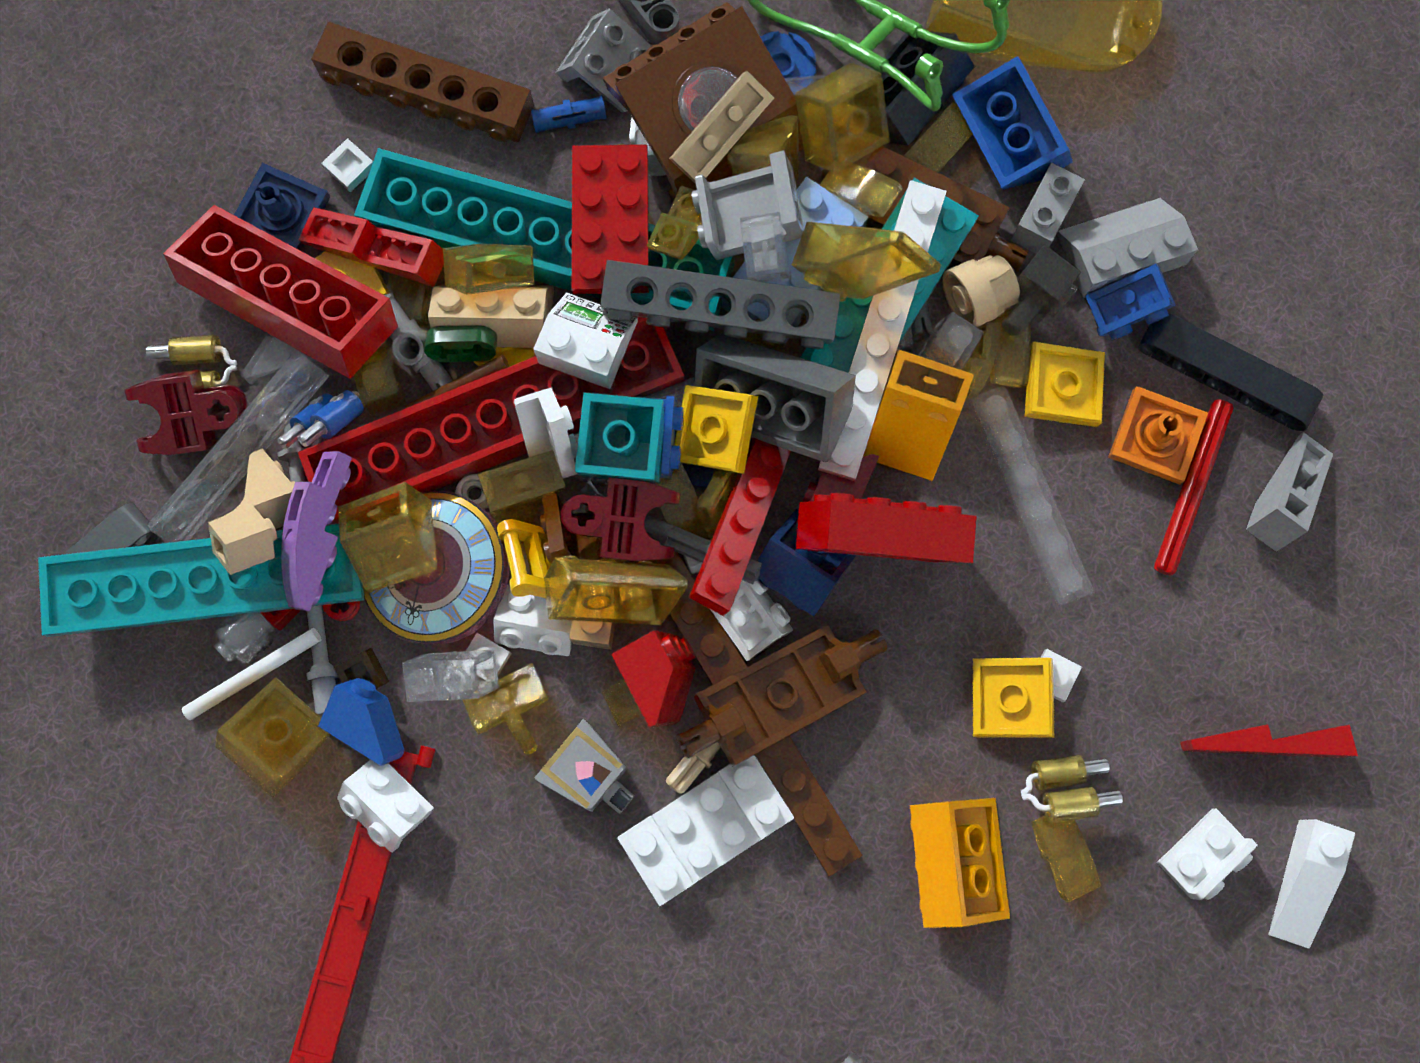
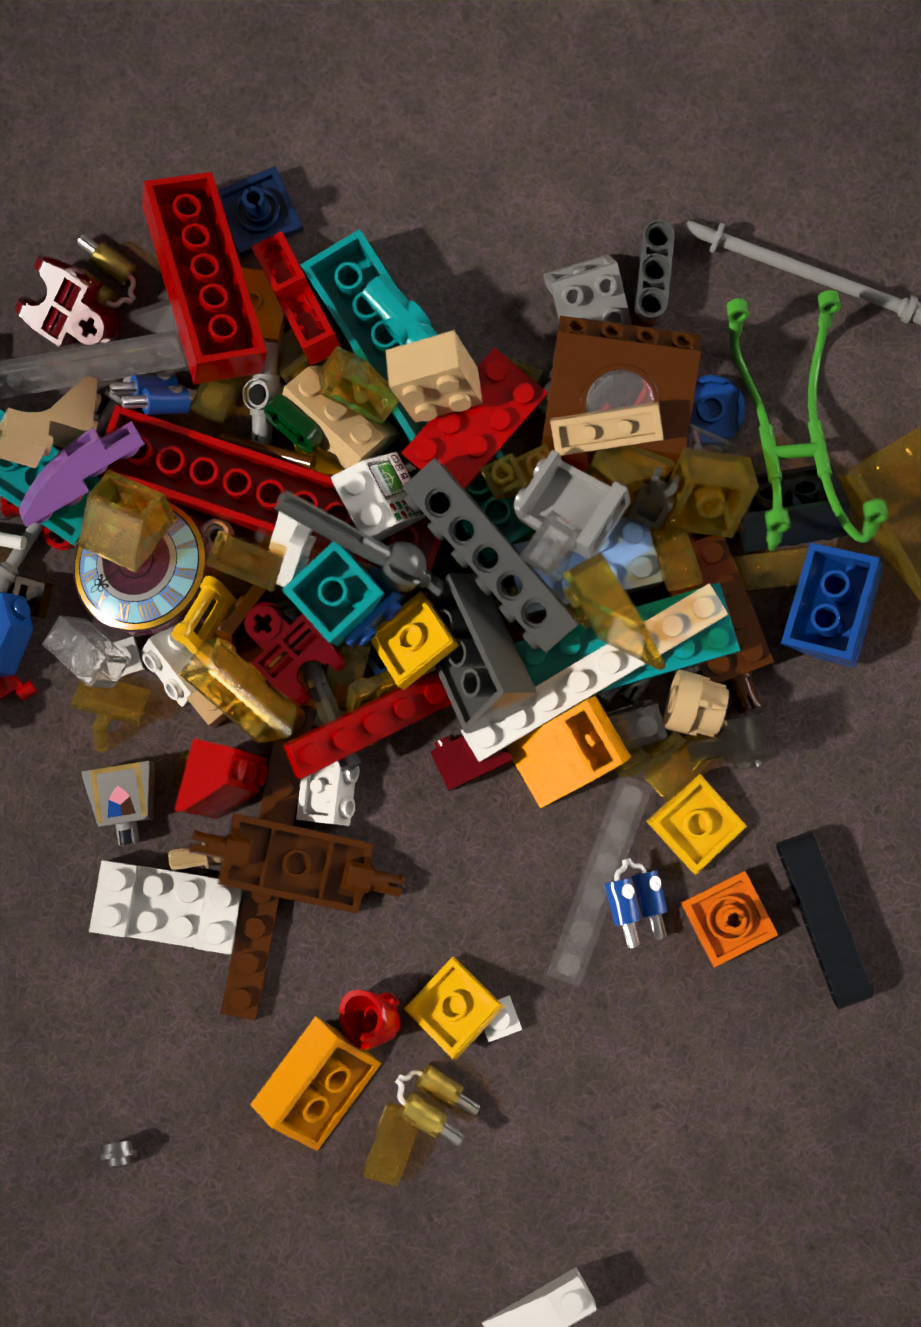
camera: 45 degrees right, 5 degrees up
(343, 46) = (404, 124): reddish brown brick -> none
(348, 165) = (334, 218): white plate -> none
(484, 184) = (401, 317): none -> teal piece
(544, 119) = (524, 314): blue pin -> none
(547, 199) = (434, 377): none -> tan brick
(652, 373) = (399, 565): none -> dark grey piece
(798, 574) = (398, 786): dark blue slope -> none
(809, 155) = (653, 500): none -> dark grey plate
(886, 529) = (463, 817): red brick -> none
(953, 767) = (369, 1018): none -> red helmet
(1047, 208) = (801, 687): light grey brick -> none
(1074, 483) = (624, 904): none -> blue piece
(1127, 243) = (836, 762): light grey slope -> none
(1131, 301) = (797, 807): blue bracket -> none
(1193, 487) = (721, 977): red axle -> none
(1207, 856) = (487, 1232): white bracket -> none
(1291, 495) = (783, 1044): light grey slope -> none
(1329, 742) = (638, 1230): red slope -> none

